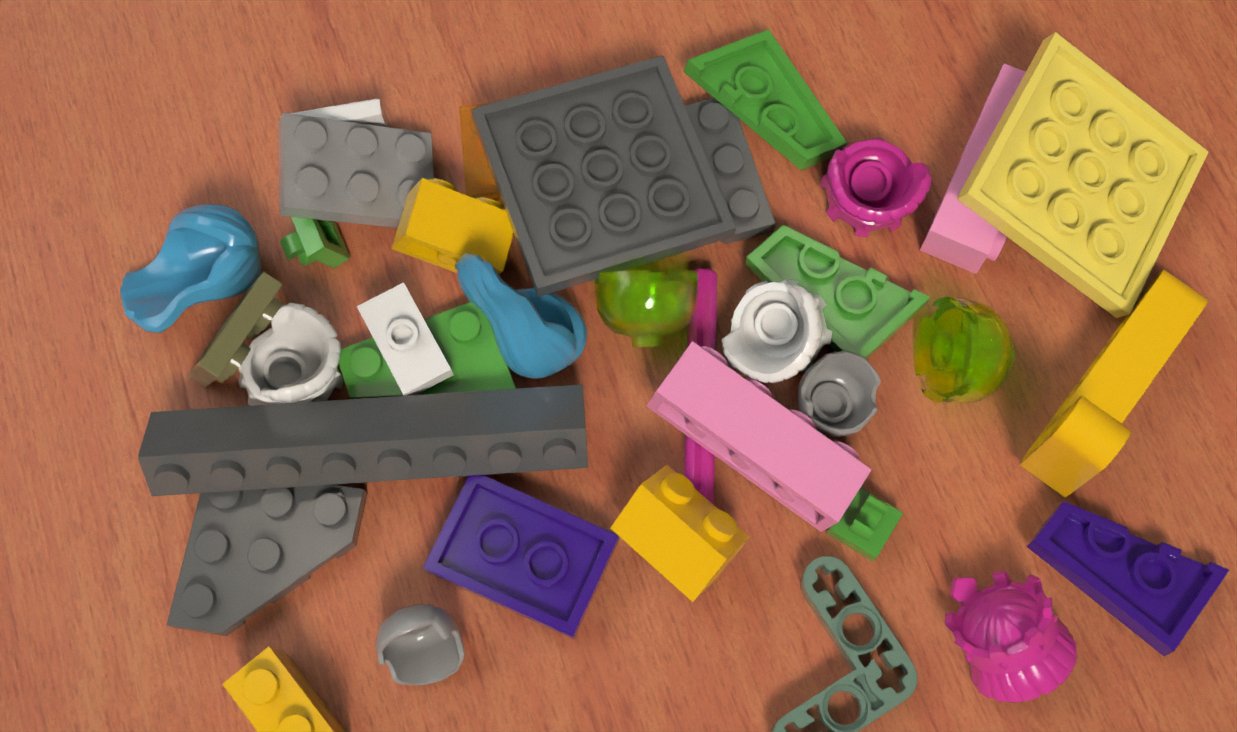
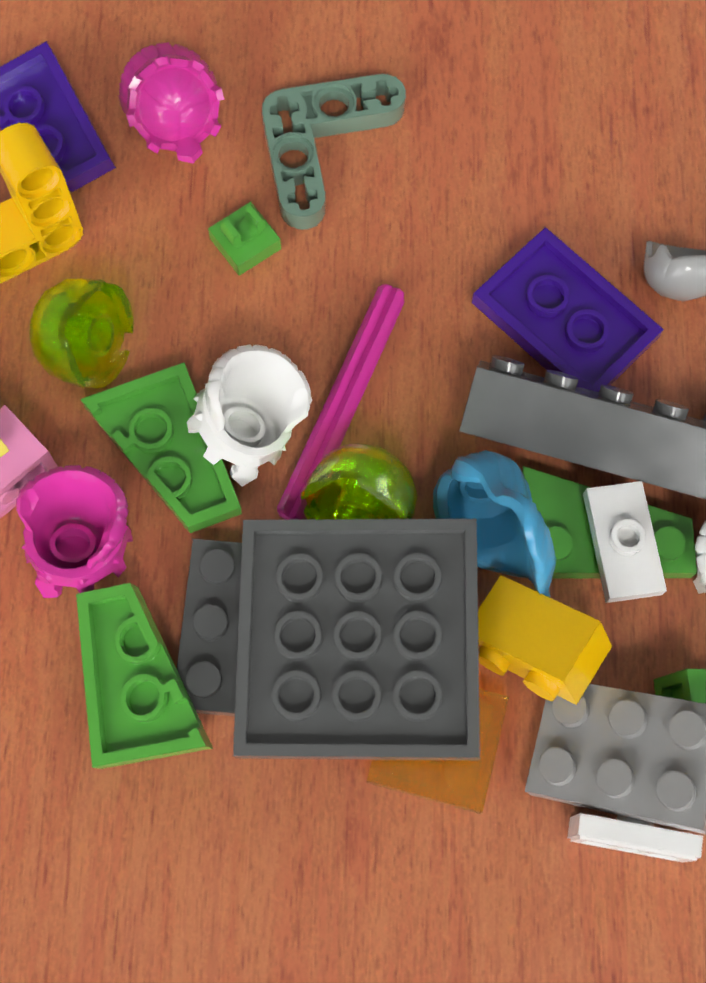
camera: 165 degrees left, 0 degrees up
(679, 532) = (418, 270): yellow brick -> none
(760, 437) = (314, 324): bright pink brick -> none
(839, 393) = (211, 334): light grey hair -> none

